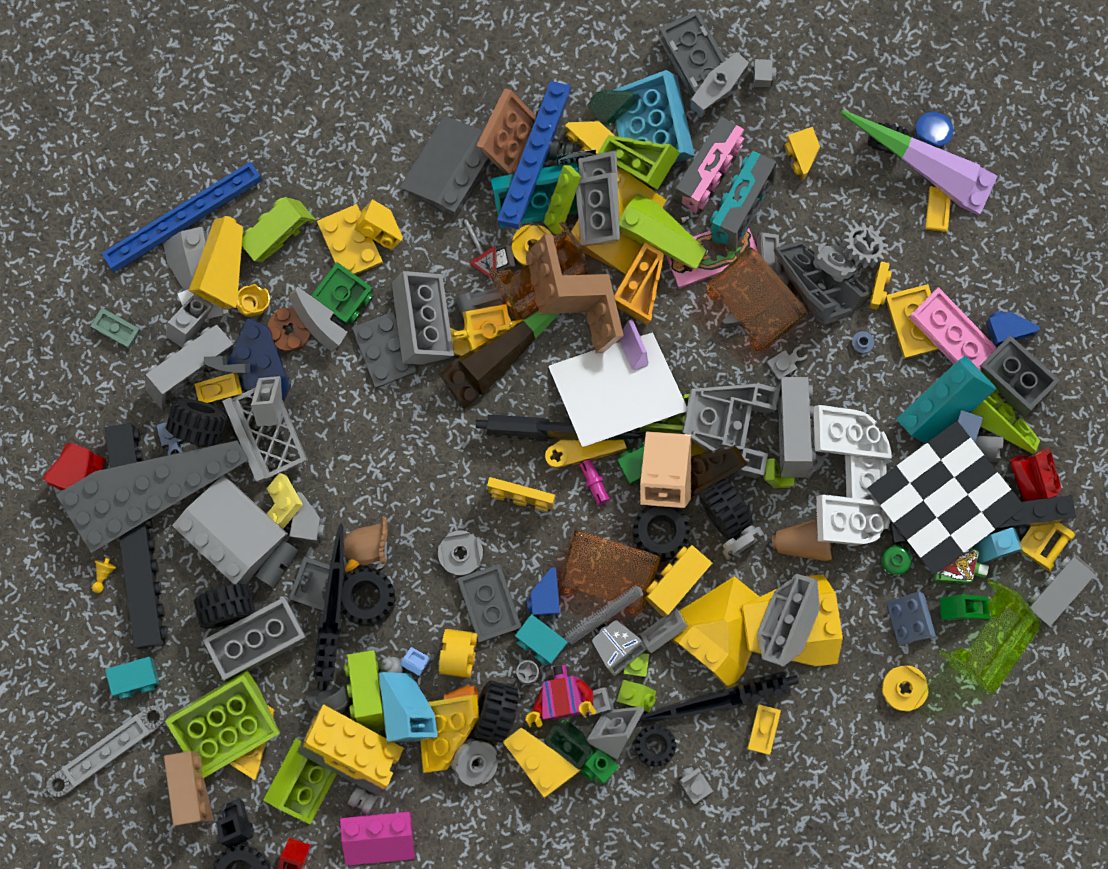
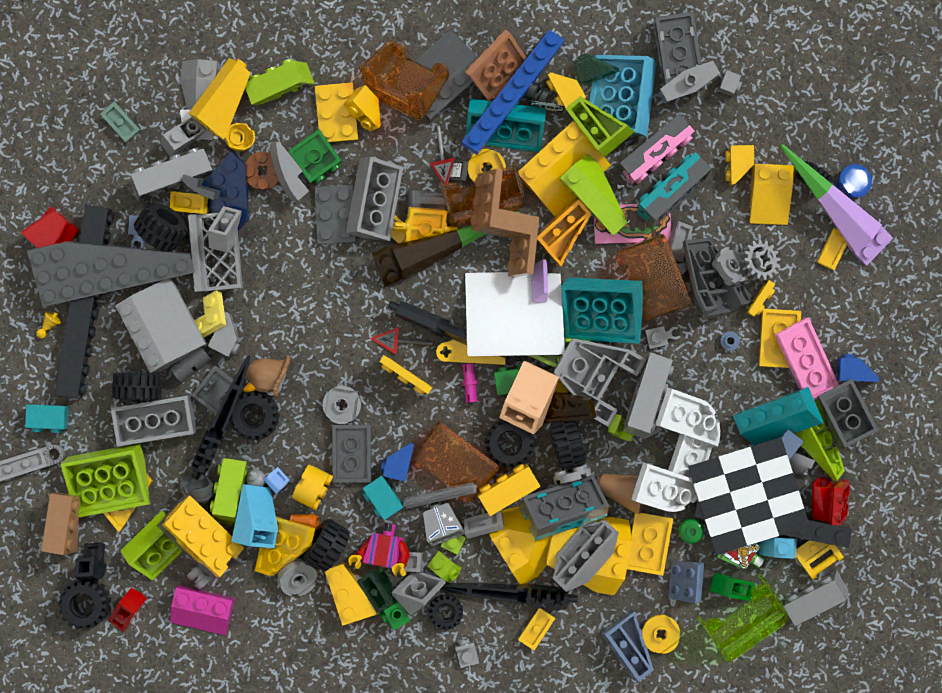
camera: 20 degrees right, 10 degrees up
(182, 217) = (204, 45): blue plate -> none
(412, 184) = (403, 81): none -> clear orange windscreen
(490, 466) = (390, 340): none -> piece
(527, 672) = (361, 521): light grey wheel -> none
(562, 198) = (523, 138): lime plate -> none
(598, 199) = (551, 150): light grey slope -> none
(713, 351) = (602, 309): none -> teal slope
(746, 578) = (564, 507): none -> dark grey piece
(849, 172) = (771, 193): none -> yellow slope
(856, 591) = (649, 543): none -> yellow plate
(874, 713) = (628, 645): none -> sand blue wedge

